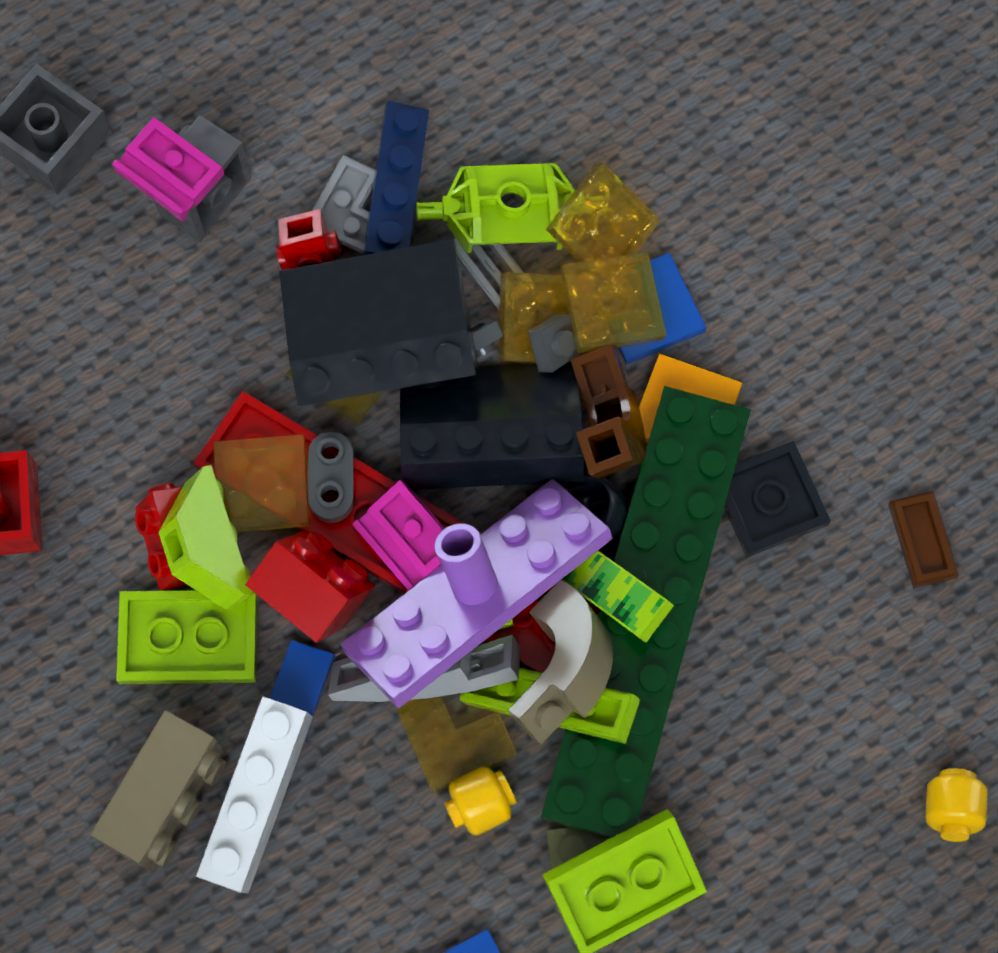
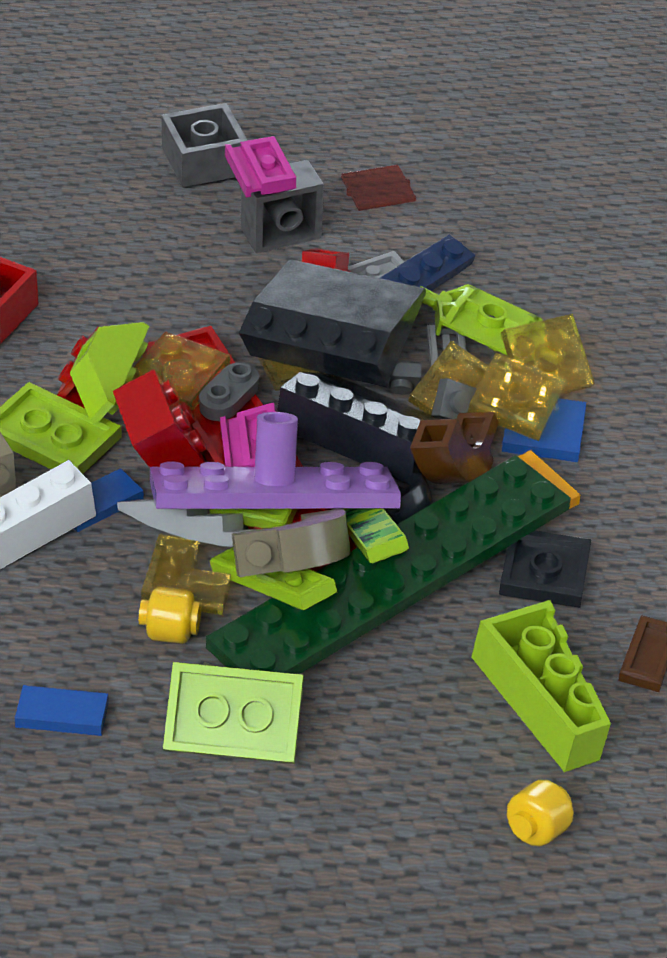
camera: 30 degrees right, 30 degrees down
(258, 63) = (378, 187): none -> clear red piece
(870, 655) = (543, 683): none -> lime wedge

